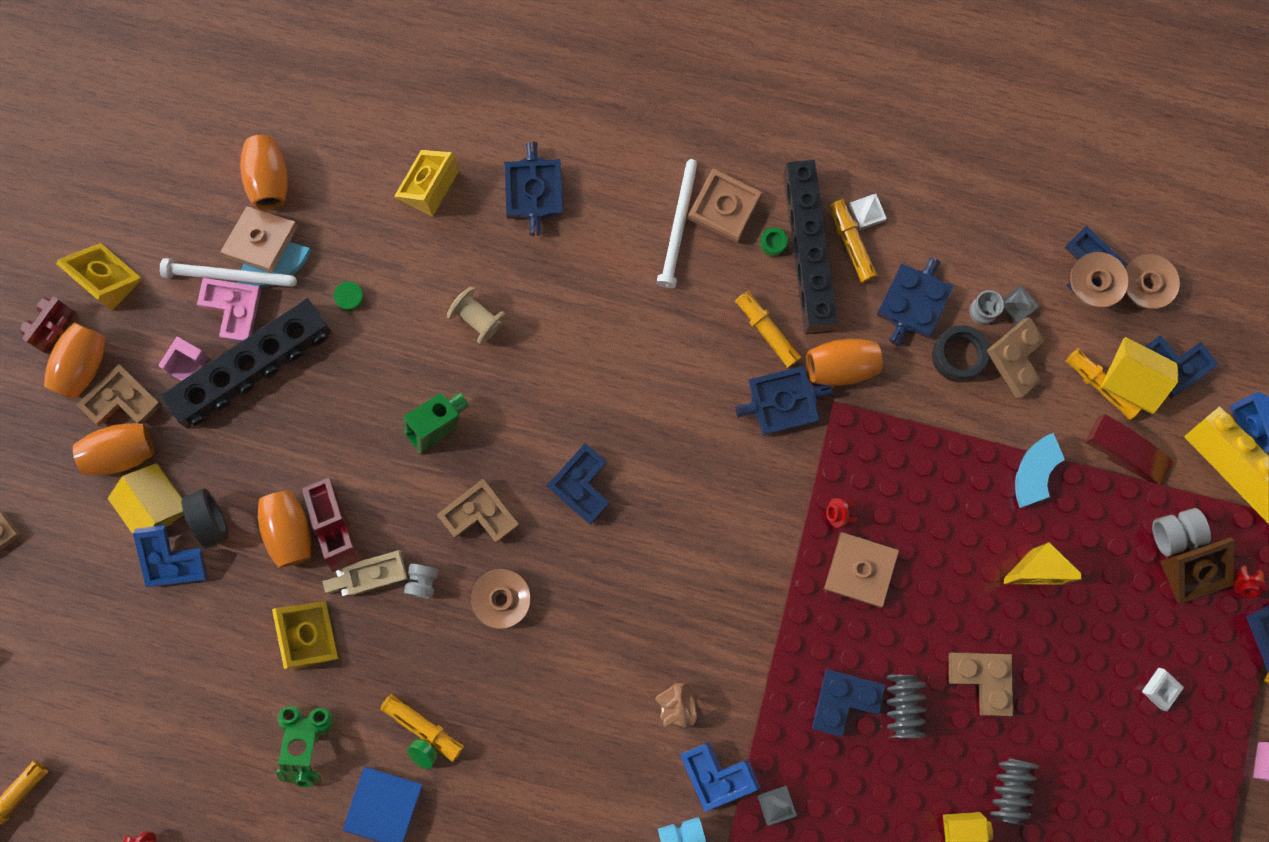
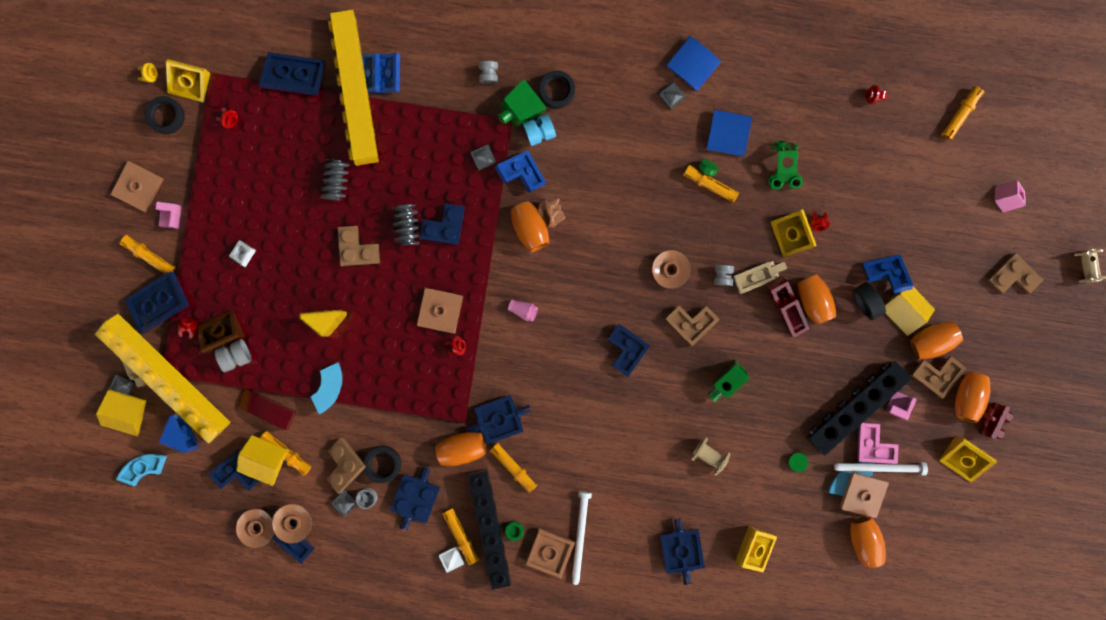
camera: 175 degrees right, 10 degrees up
(263, 646) = (819, 224): none -> red plate
(712, 687) = (529, 226): none -> orange piece
(733, 560) = (523, 309): none -> bright pink cone

